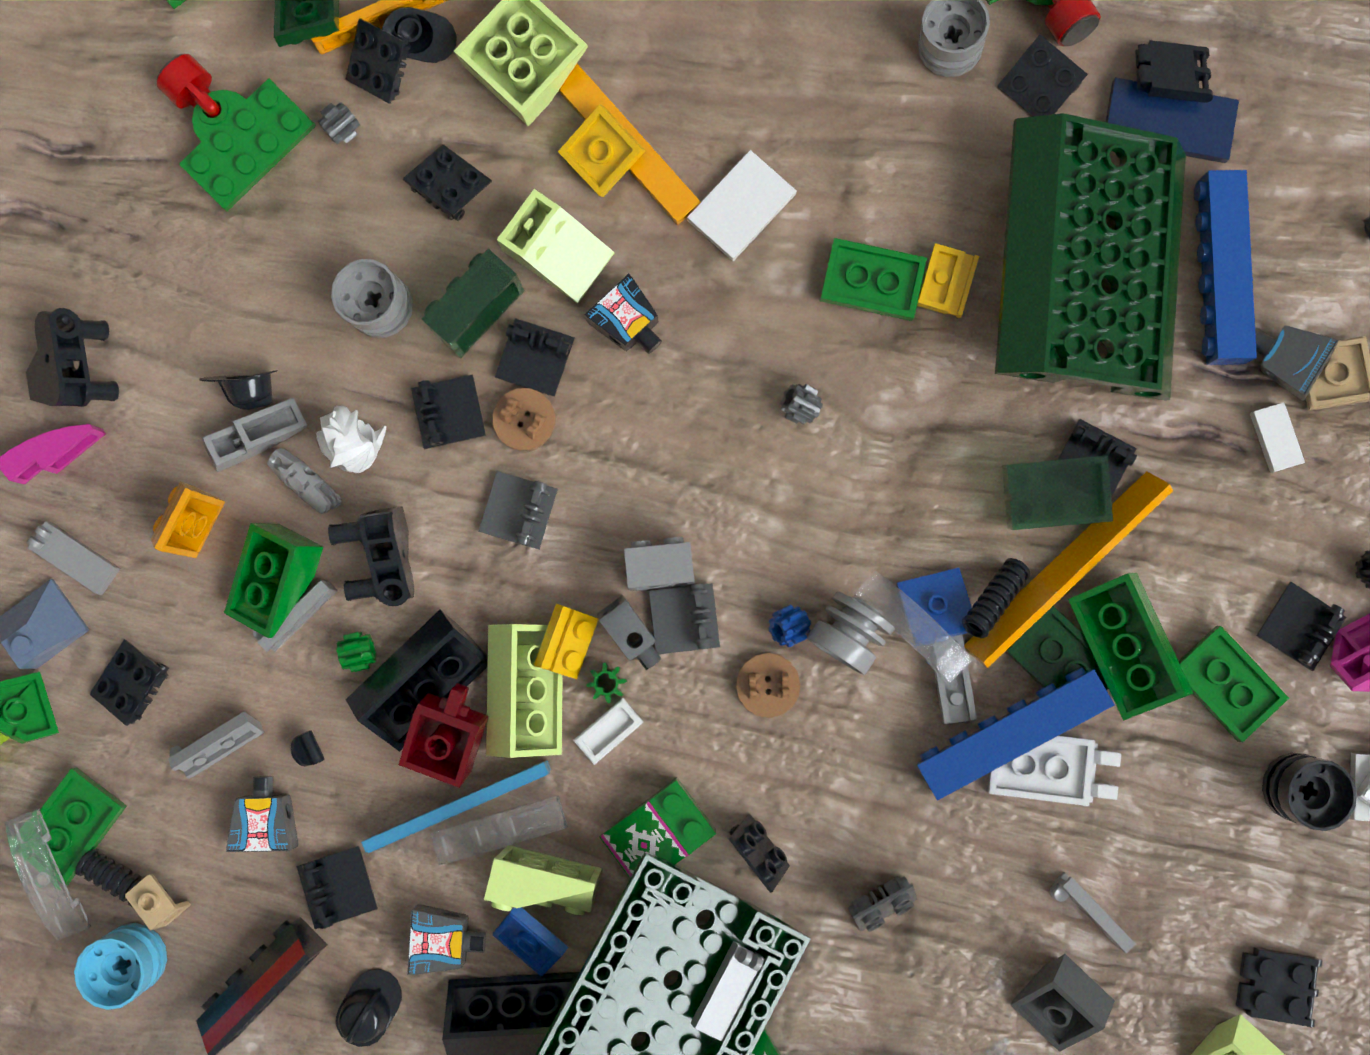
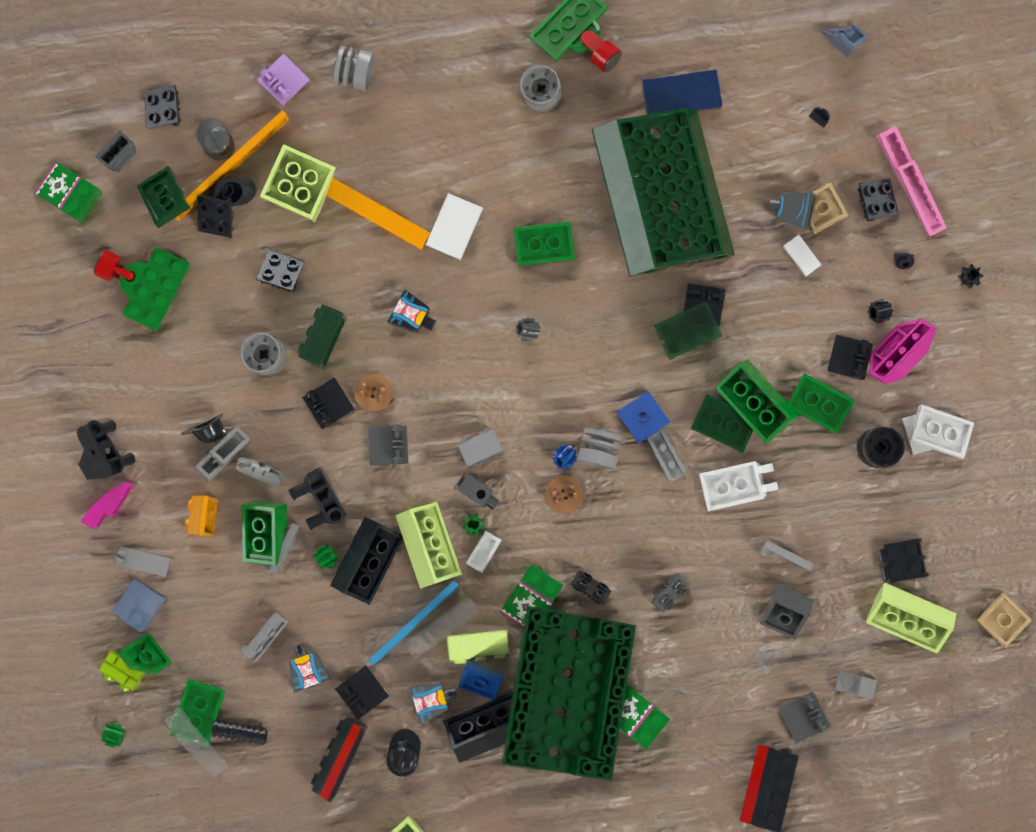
camera: 25 degrees left, 0 degrees up
(108, 978) = (258, 786): medium azure wheel -> none
(127, 682) = (201, 620): black hinge -> none
(154, 903) = (263, 735): tan bracket -> none
(306, 749) = (317, 621): black plate -> none
(339, 123) = (205, 258): dark grey gear -> none
(348, 440) = (279, 439): white hair -> none
(444, 737) = (393, 575): dark red hinge -> none
(534, 357) = (366, 354): black hinge -> none
(554, 246) = (356, 288): yellowish green slope -> none
(566, 641) = (442, 509): yellow plate -> none
(601, 151) = (363, 223): yellow plate -> none
(684, 618) = (504, 473): dark grey hinge -> none
(727, 991) = (599, 668): hinge -> none
(915, 626) = (634, 432): clear slope -> none
(947, 280) = (586, 230): yellow plate -> none
(996, 598) = (674, 401): black piece -> none
(1015, 733) = (706, 476): blue brick -> none
(1042, 78) = (601, 96): black hinge -> none
(1070, 567) = (709, 370): light orange tile -> none
(1173, 71) = (672, 66): black plate -> none
(1225, 267) = (740, 168): blue brick -> none

